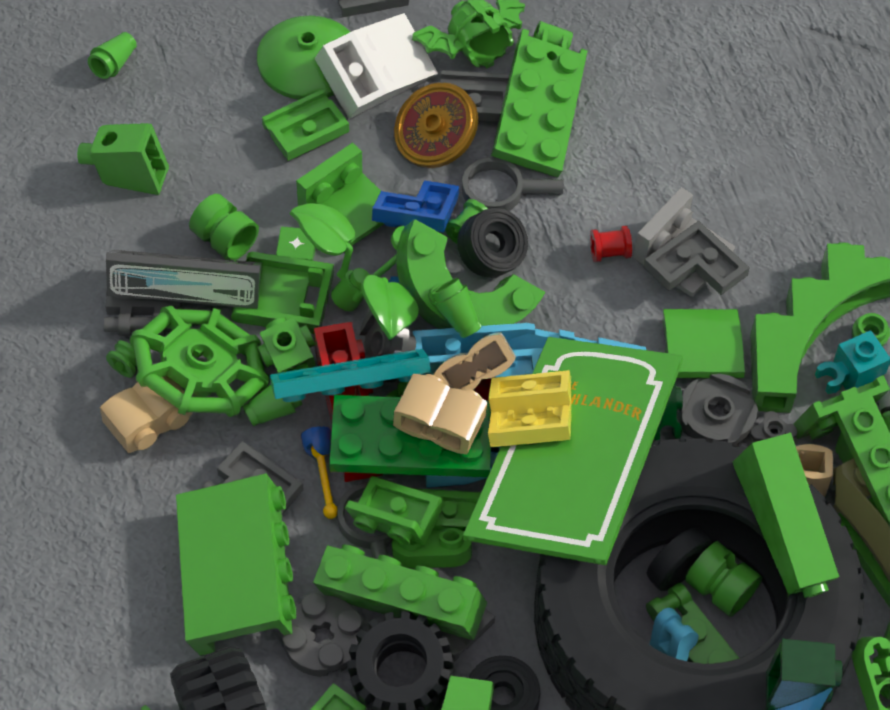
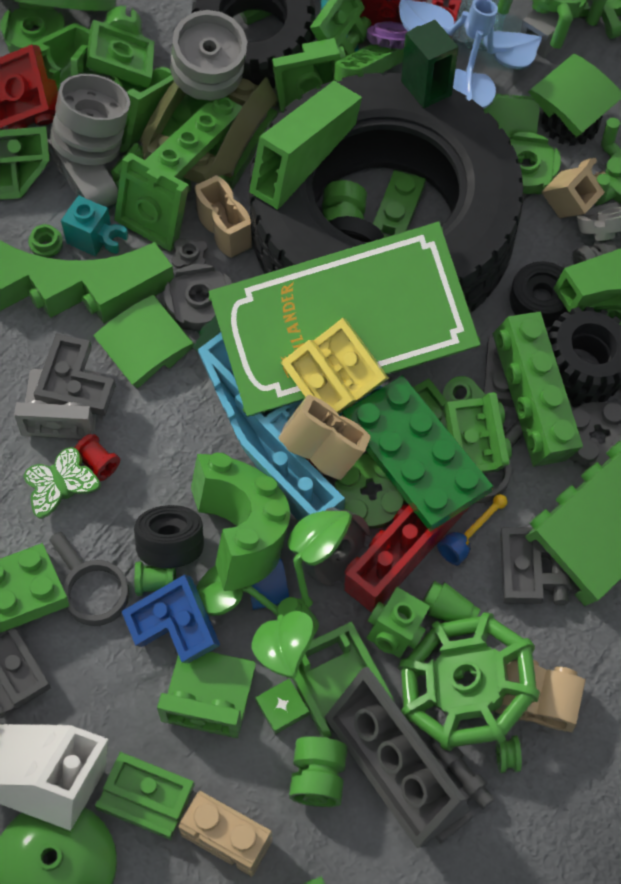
camera: 125 degrees left, 5 degrees up
(233, 149) = (225, 833): none -> tan brick
(333, 378) = (405, 526): teal plate -> none
(436, 125) = (69, 672): pearl gold shield -> none
(440, 413) = (396, 419): tan brick -> none
(457, 307) = (280, 486): bright green cone -> none
(606, 203) = (59, 481): none -> bright green animal
(672, 636) = (424, 207): medium azure plate -> none

